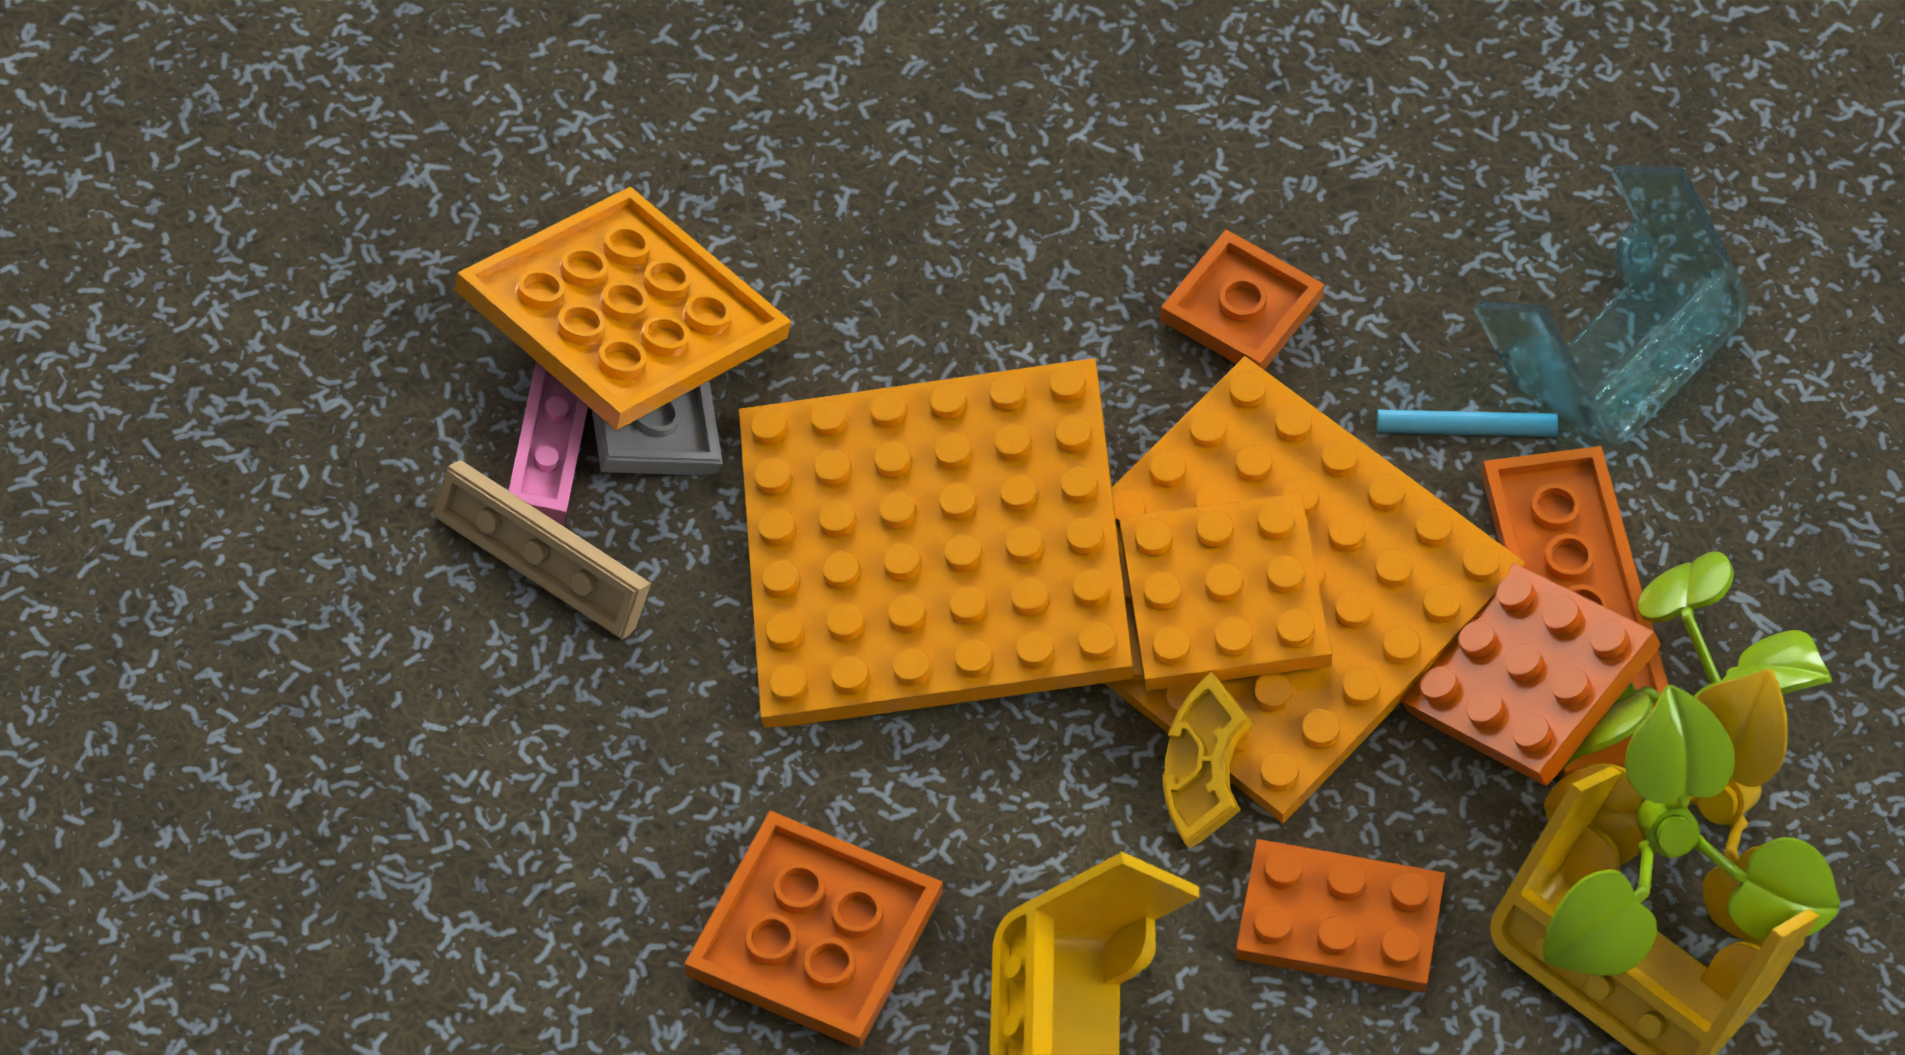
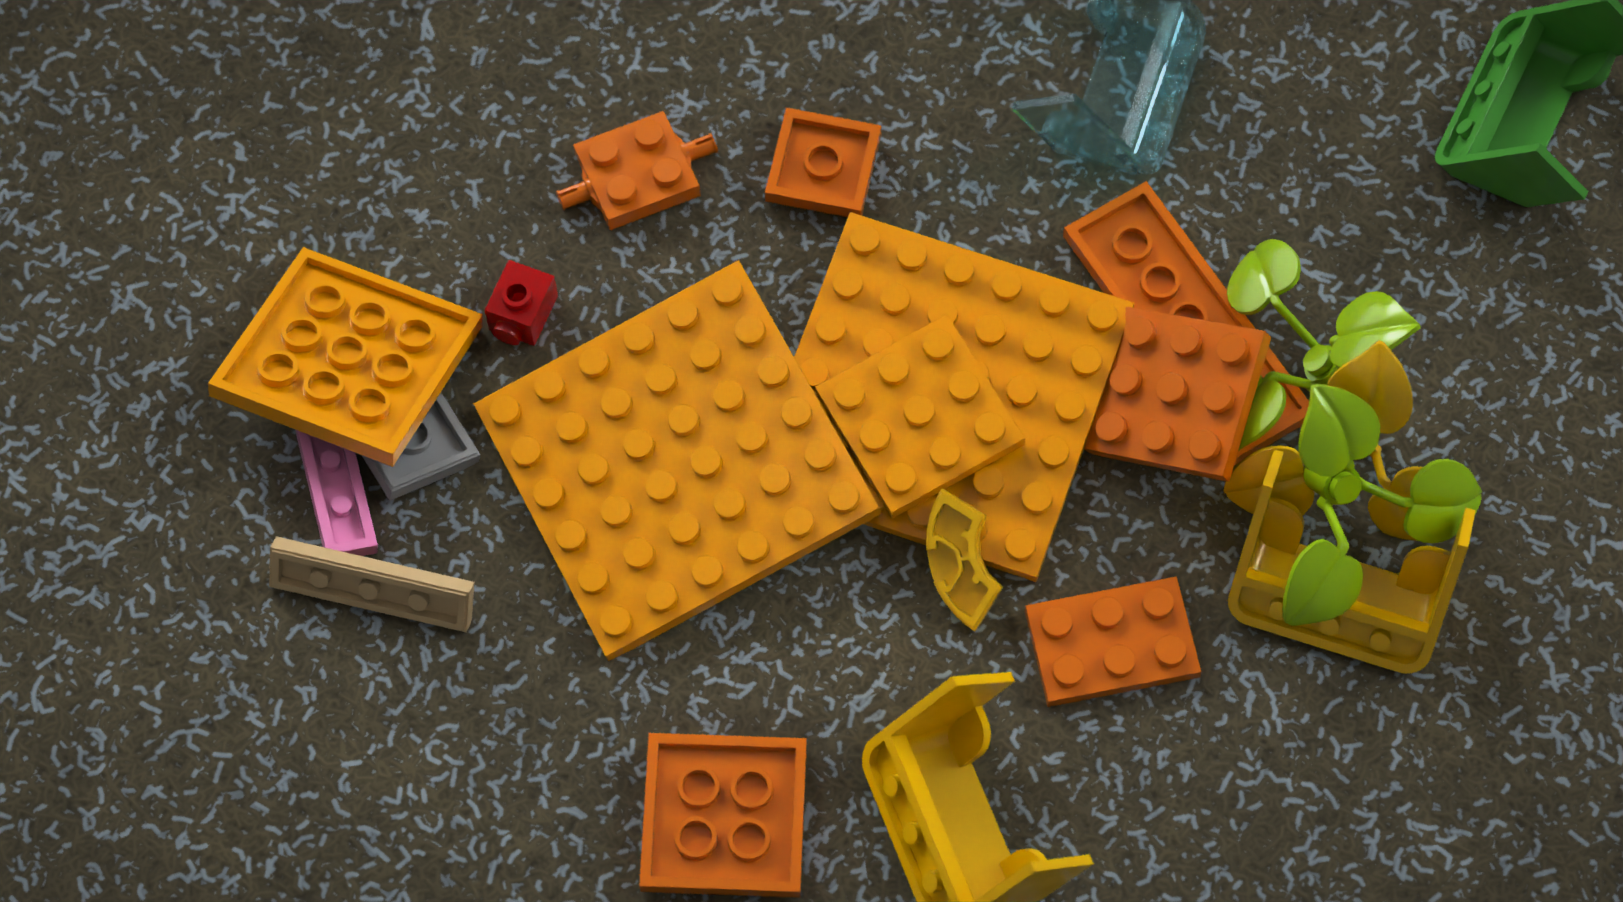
camera: 20 degrees left, 10 degrees up
(838, 325) = (520, 304): none -> red brick
(1031, 239) = (636, 170): none -> orange plate
(1467, 423) = (1034, 198): medium azure bar -> none

